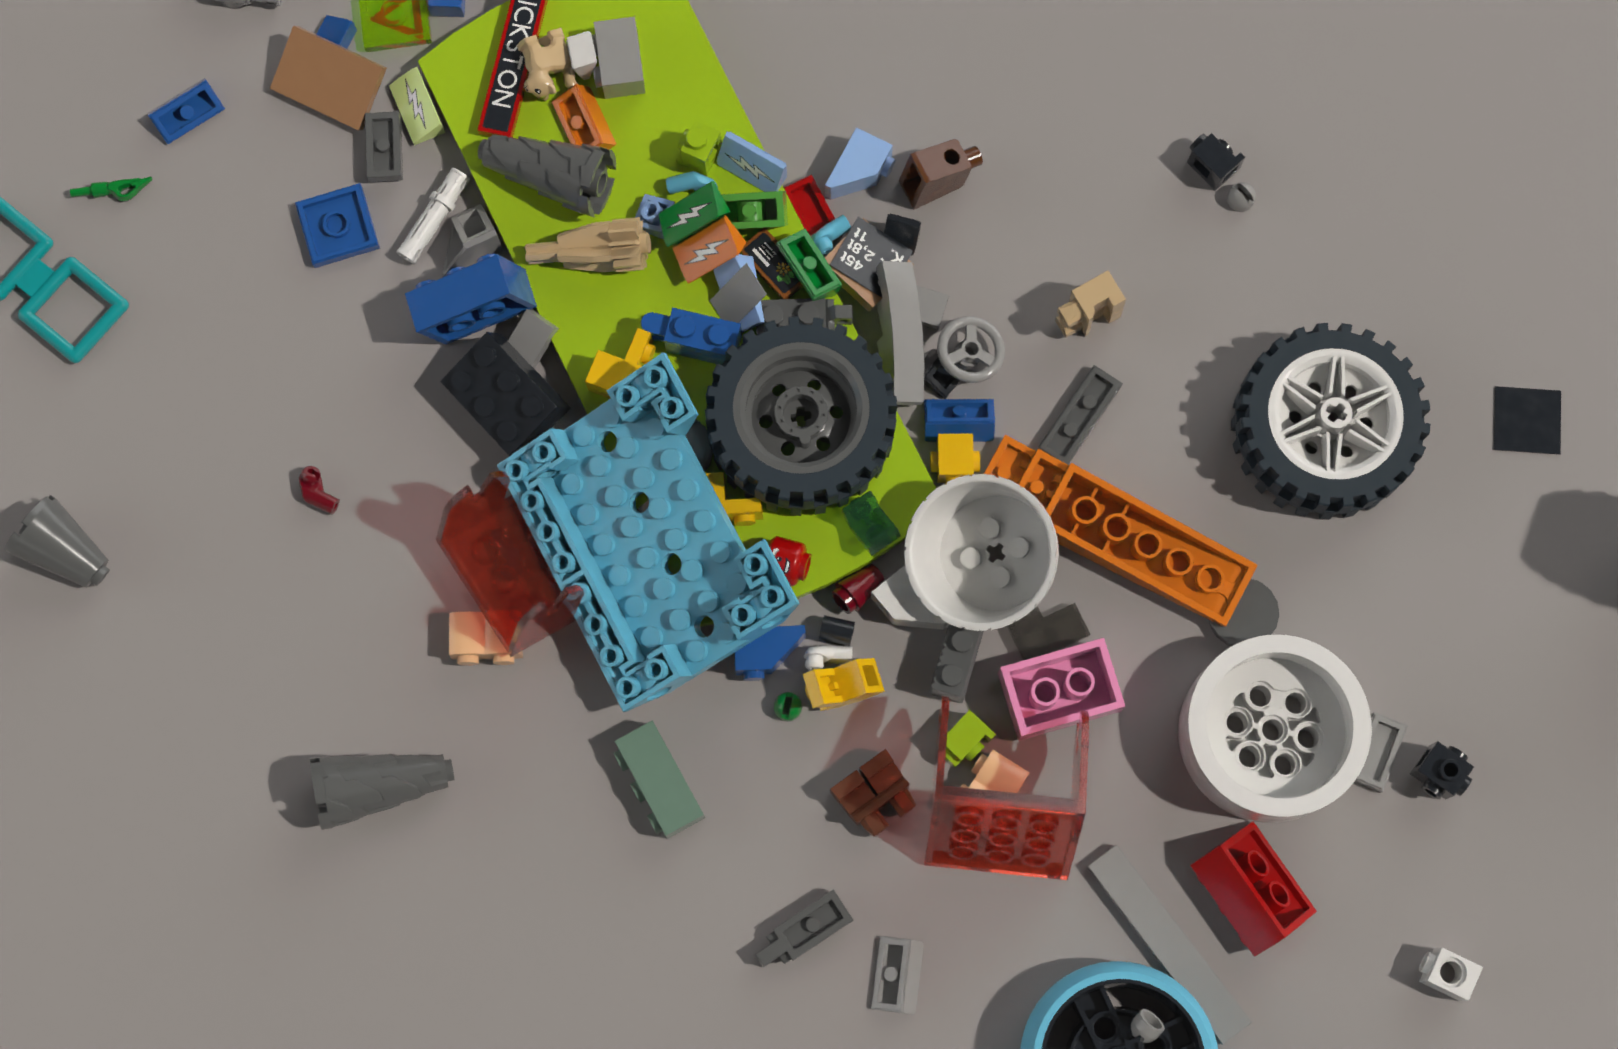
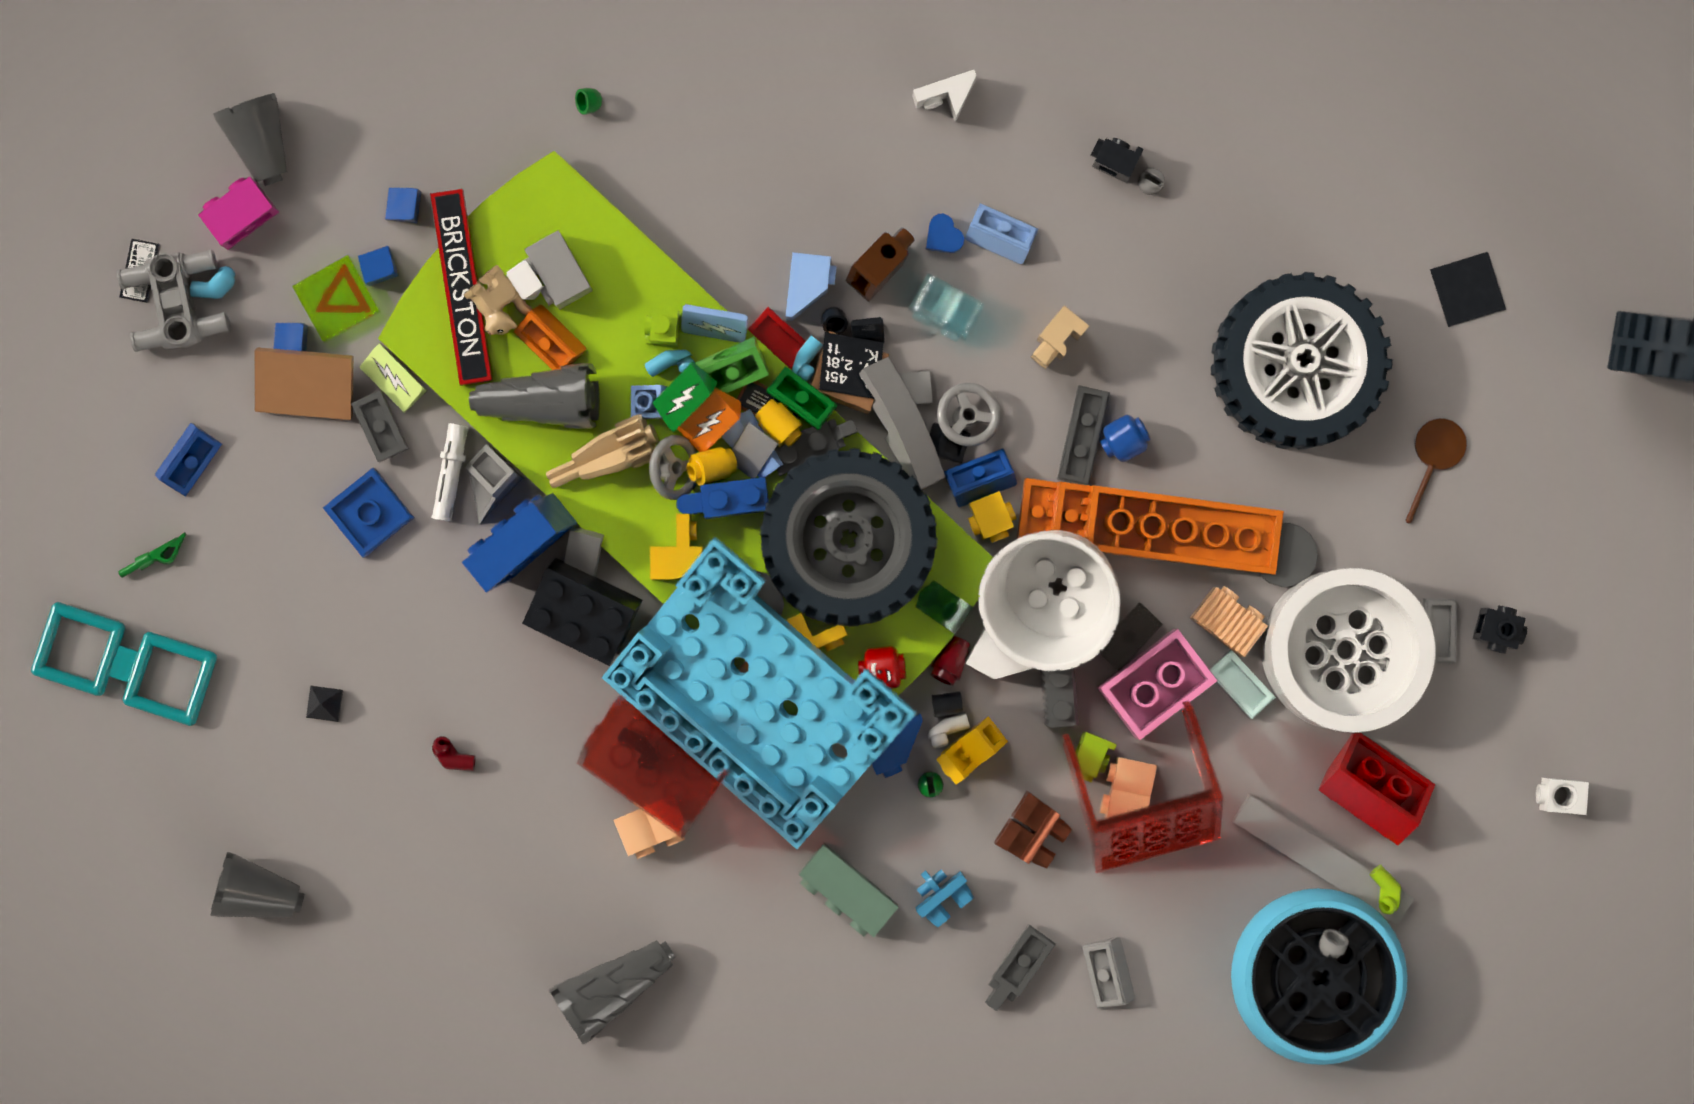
camera: 25 degrees left, 10 degrees up
(213, 392) = (324, 703): none -> black slope
(648, 282) = (668, 467): none -> light grey piece
(692, 296) = (711, 465): none -> yellow brick
(739, 830) = (954, 887): none -> dark azure hips
(776, 279) = (779, 423): none -> yellow brick
(872, 215) = (834, 320): none -> black hinge
(988, 239) = (946, 307): none -> clear light blue brick
(1013, 172) = (943, 235): none -> blue tile
(1071, 192) = (1001, 234): none -> light blue slope
(1077, 36) = (954, 89): none -> white slope
(1121, 432) = (1125, 438): none -> blue head
(1149, 728) = (1241, 684): none -> light aqua tile
(1161, 656) = (1229, 621): none -> light nougat brick
(1228, 1001) = (1389, 890): none -> lime arm
(1443, 565) = (1439, 446): none -> reddish brown piece

